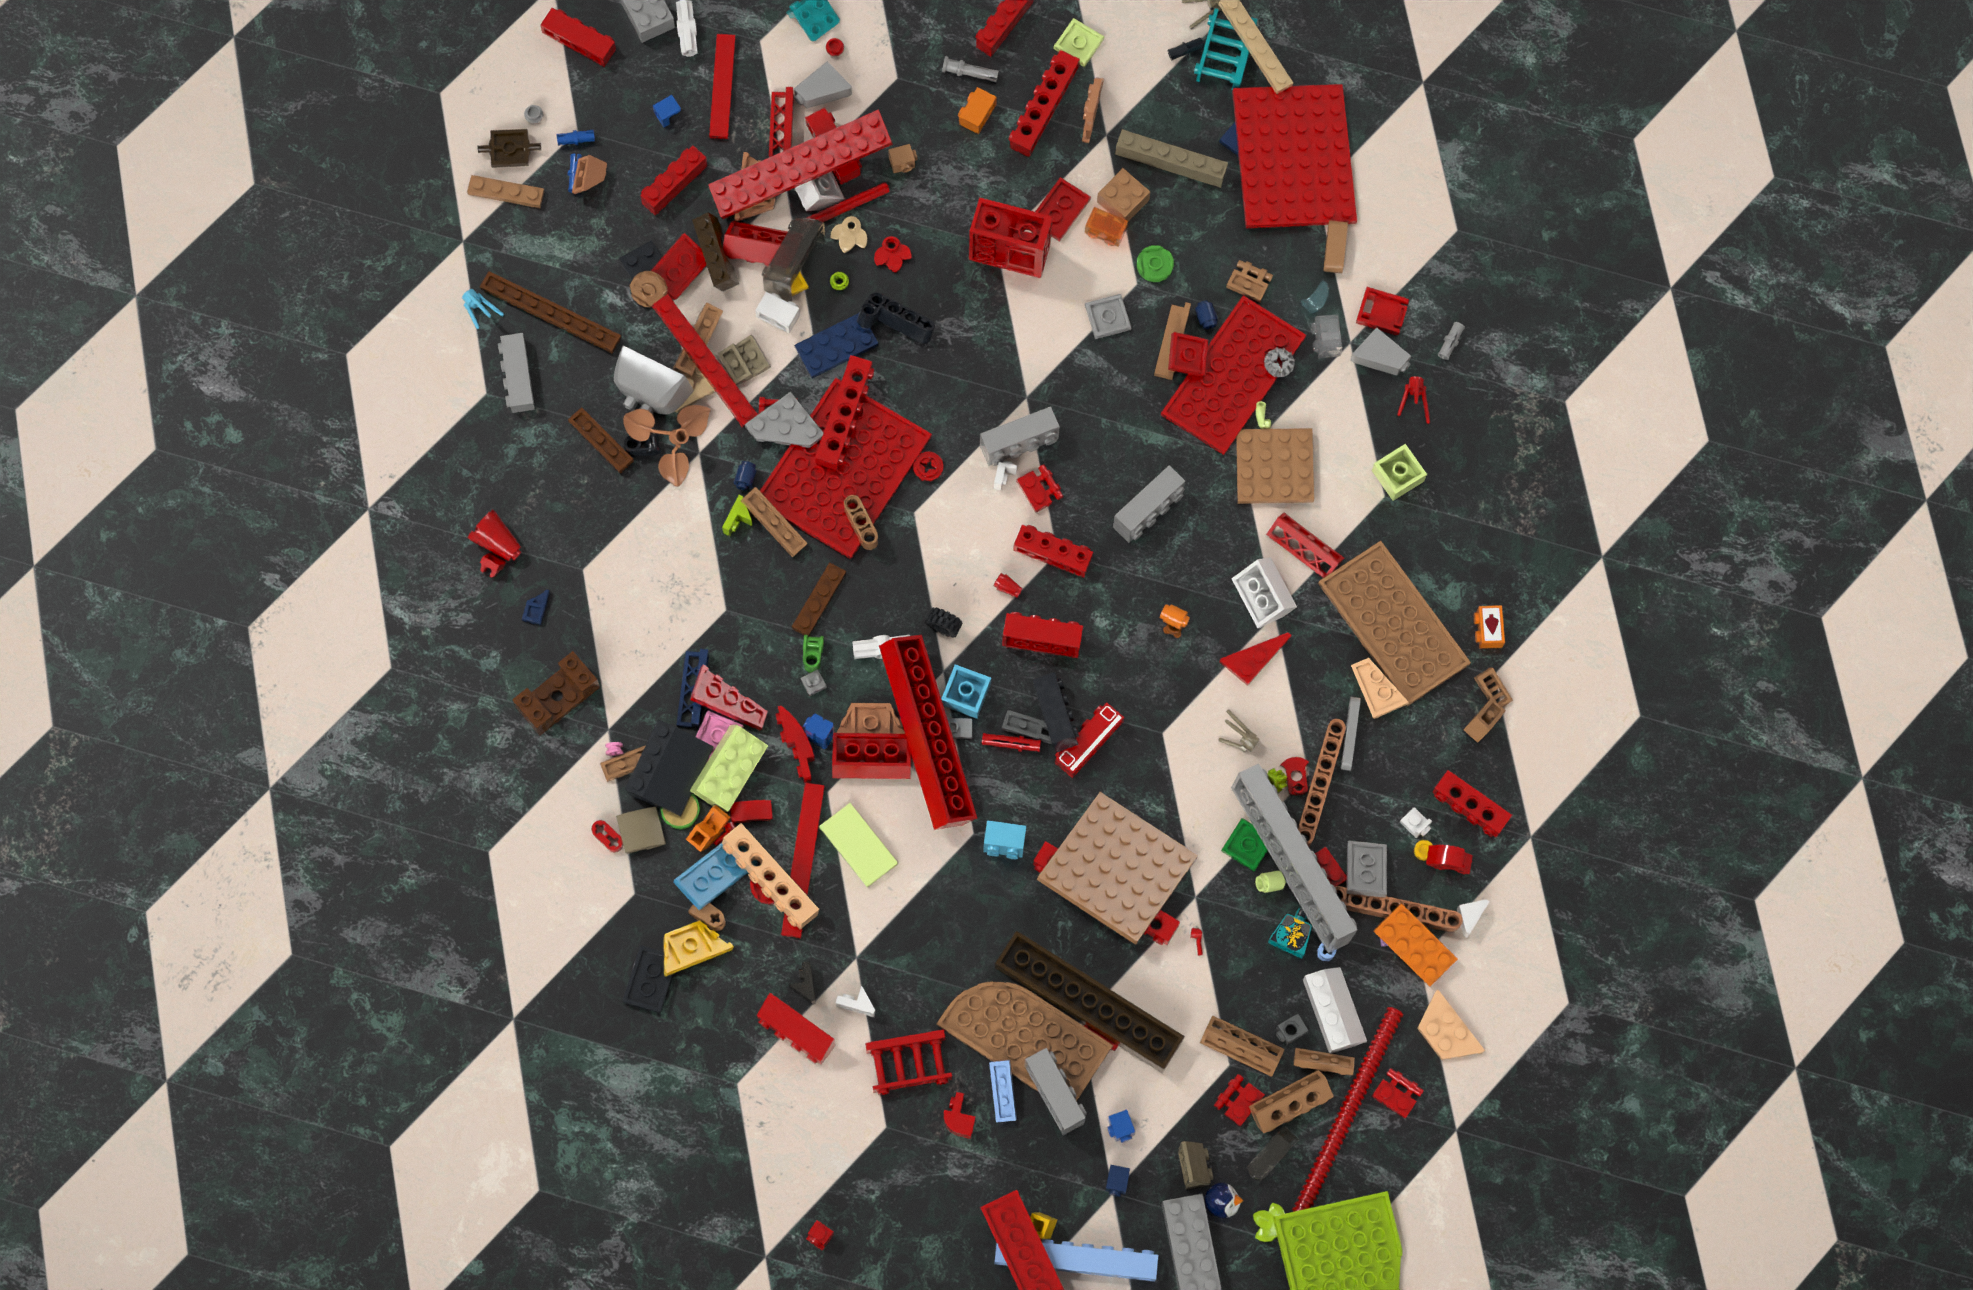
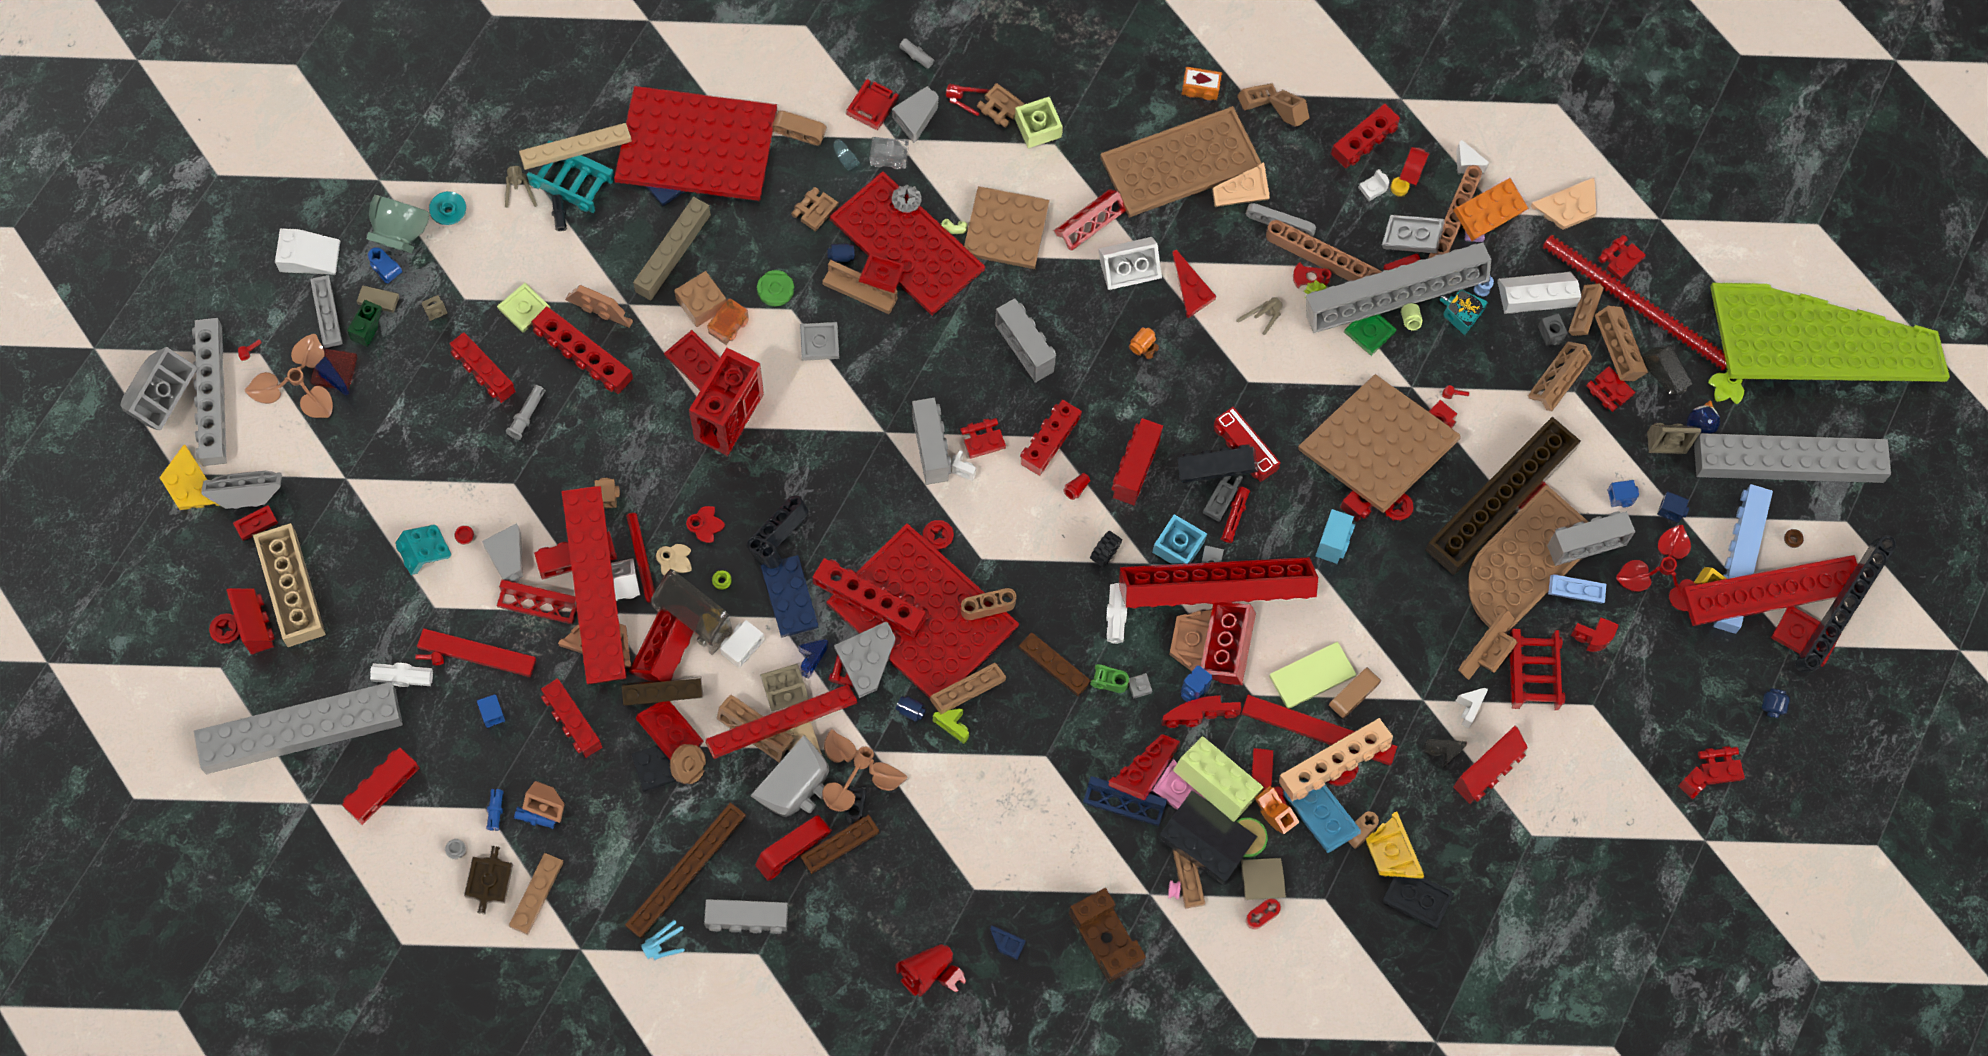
camera: 80 degrees left, 5 degrees down
(589, 397) = (791, 846): none -> red beam
(709, 54) = (436, 657): none -> red hand
(782, 379) = (815, 652): none -> clear blue slope
(840, 1266) = (1721, 772): none -> red plate
(847, 887) = (1355, 693): none -> medium nougat beam
(919, 1011) = (1492, 647): none -> medium nougat bracket
(977, 110) = (573, 413): orange brick -> none
(1037, 1151) = (1635, 573): none -> red plant
(1047, 903) = (1407, 508): none -> red gear
(1418, 435) = (1003, 101): none -> medium nougat plate

